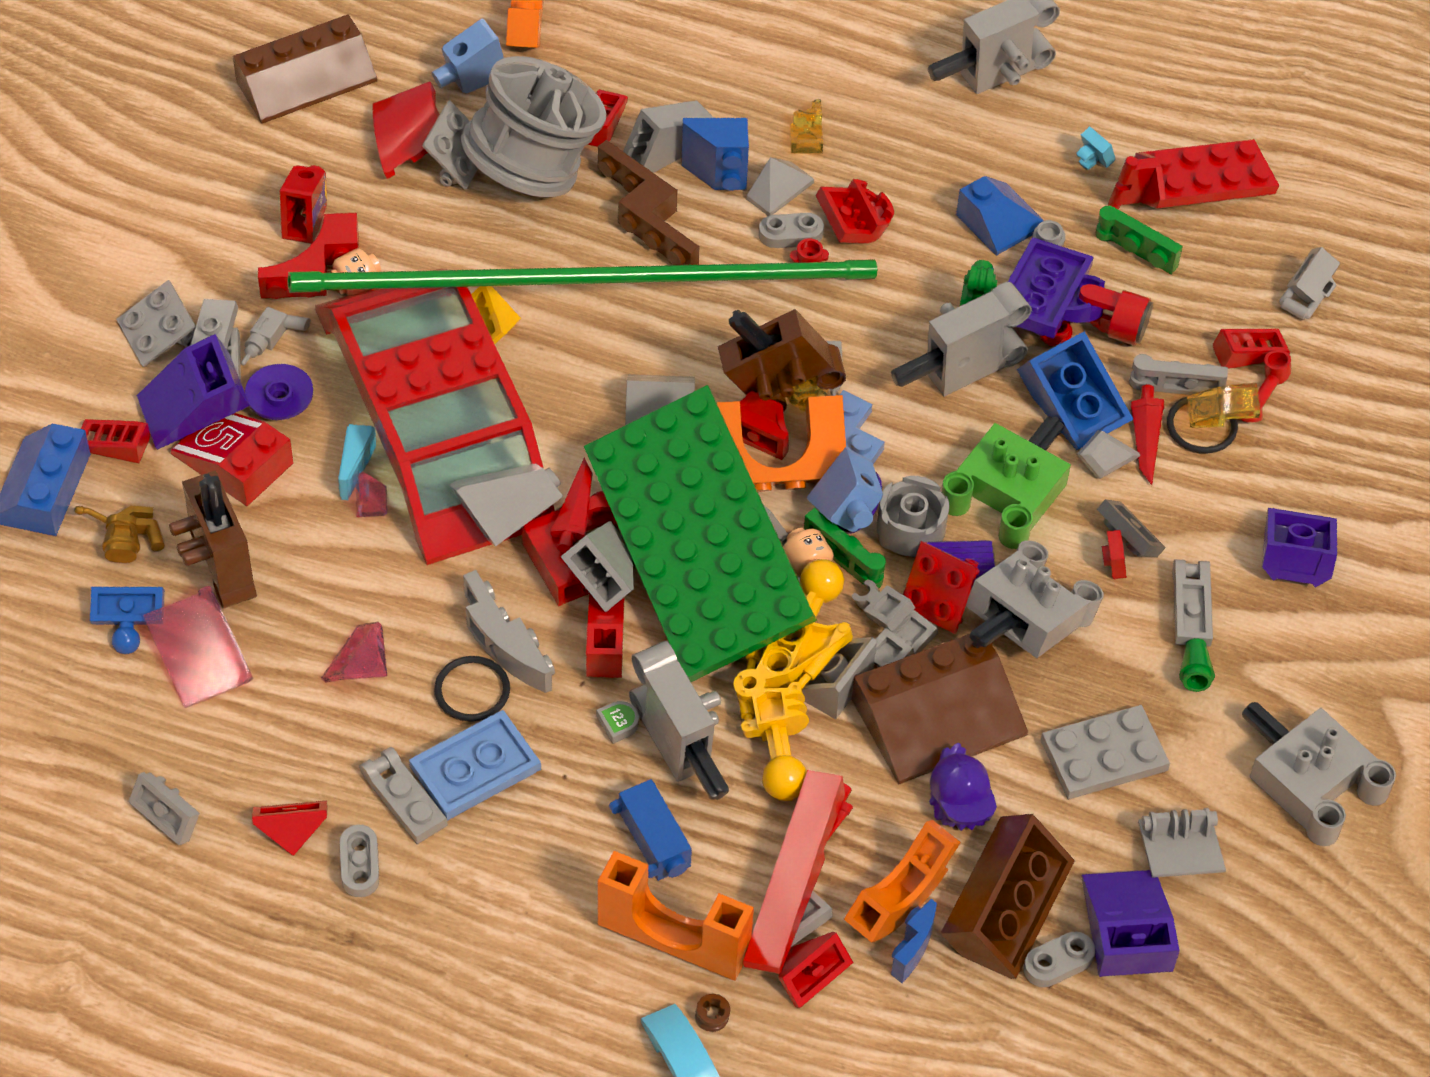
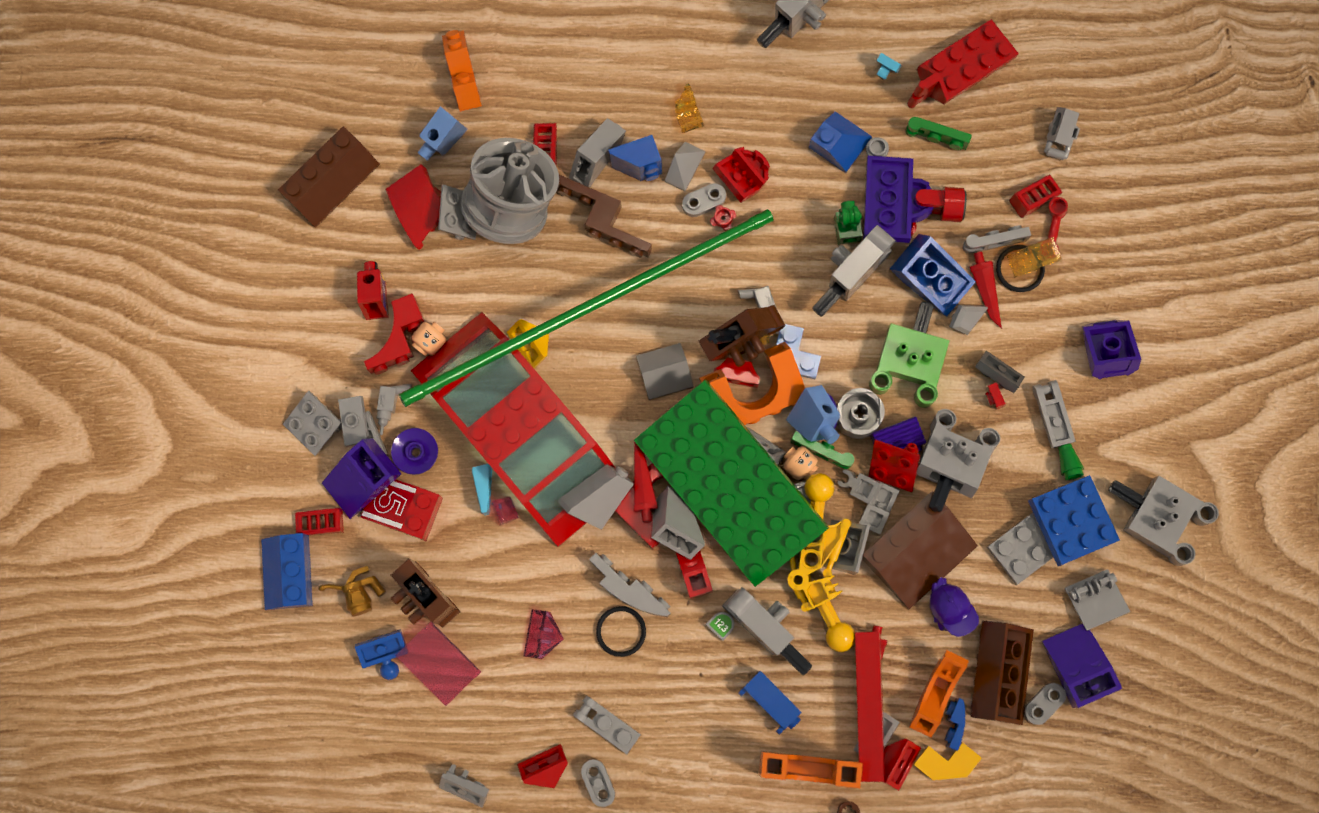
camera: 10 degrees left, 25 degrees up
(475, 764) = (644, 690): medium blue plate -> none
(868, 993) = (957, 766): none -> yellow tile
(1178, 733) = (1073, 520): none -> blue plate

